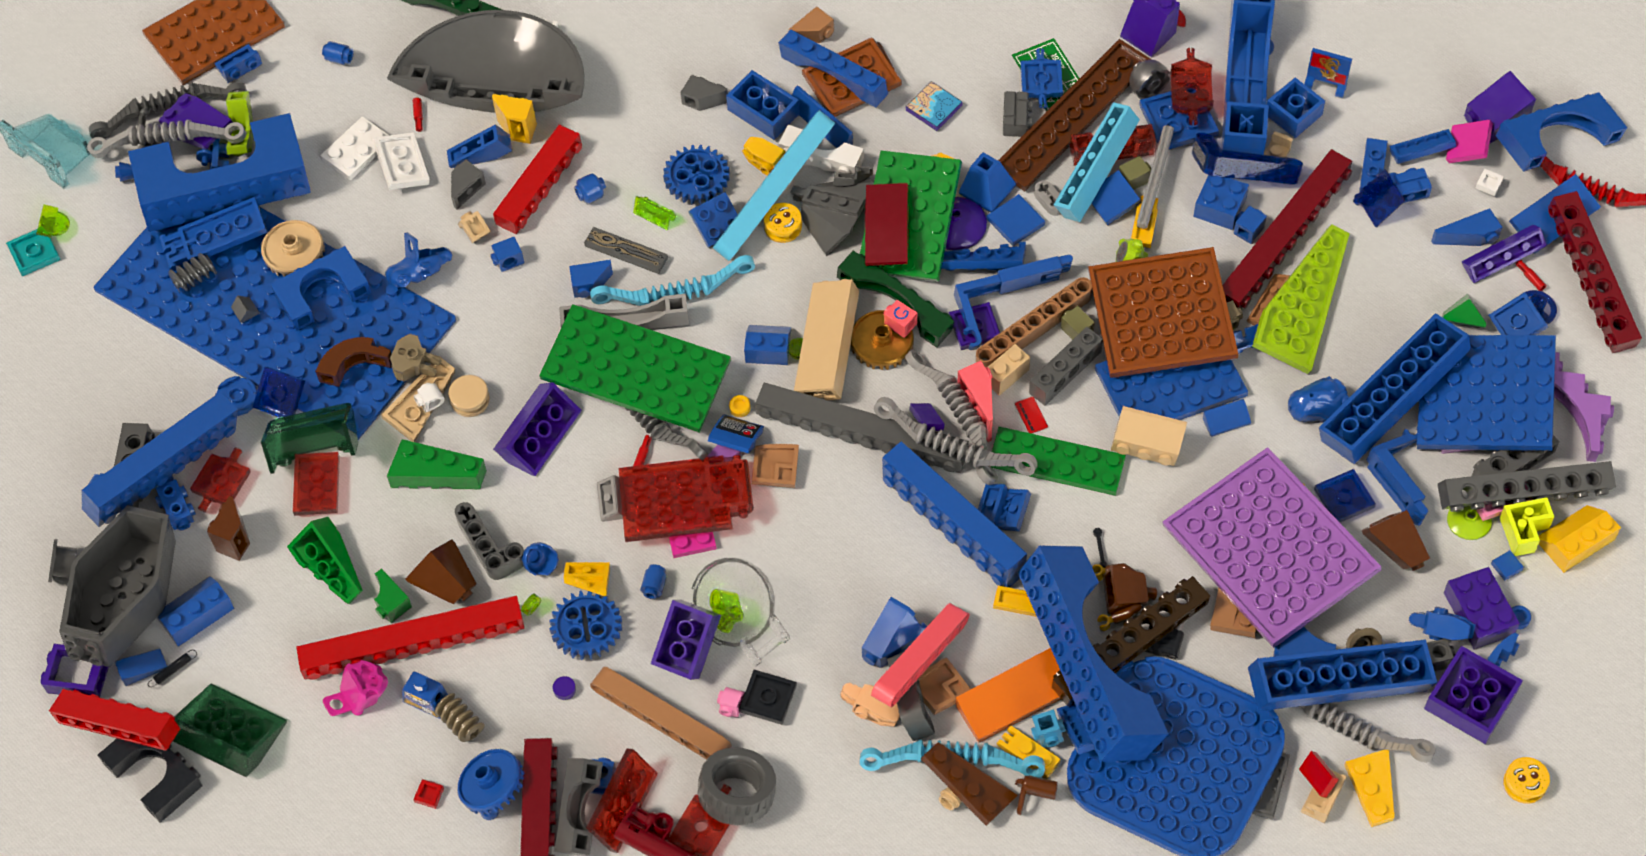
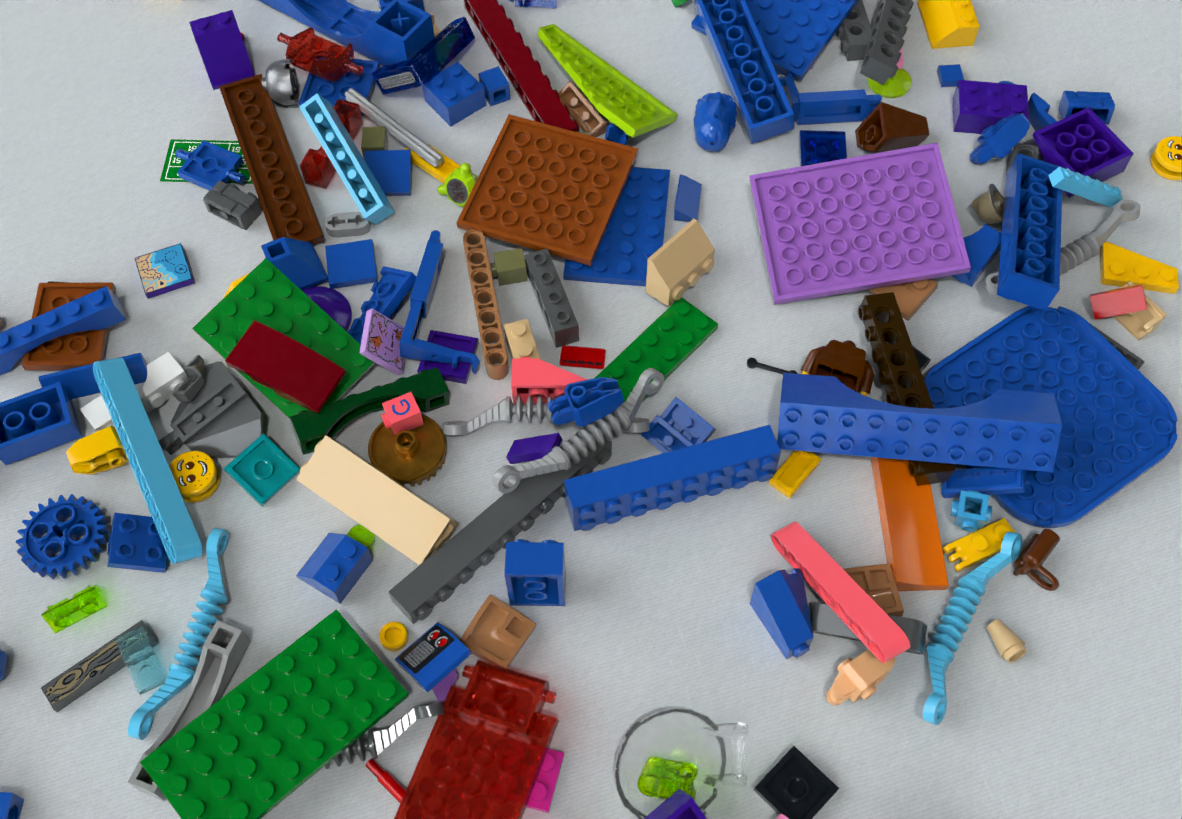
camera: 65 degrees left, 0 degrees up
(588, 276) = (106, 727): blue slope -> none
(641, 269) = (141, 660): none -> clear light blue slope
(811, 259) = (262, 469): none -> teal tile
(823, 460) = (535, 573): none -> blue brick
(953, 271) = (382, 341): none -> lavender tile
(970, 424) = (586, 401): none -> blue hinge
(971, 785) = (1007, 619): reddish brown wing -> none
(1426, 708) = (1085, 186): none -> medium azure piece
(1523, 521) = (924, 44): neon yellow brick -> none
(1537, 686) = (1099, 102): none -> blue brick

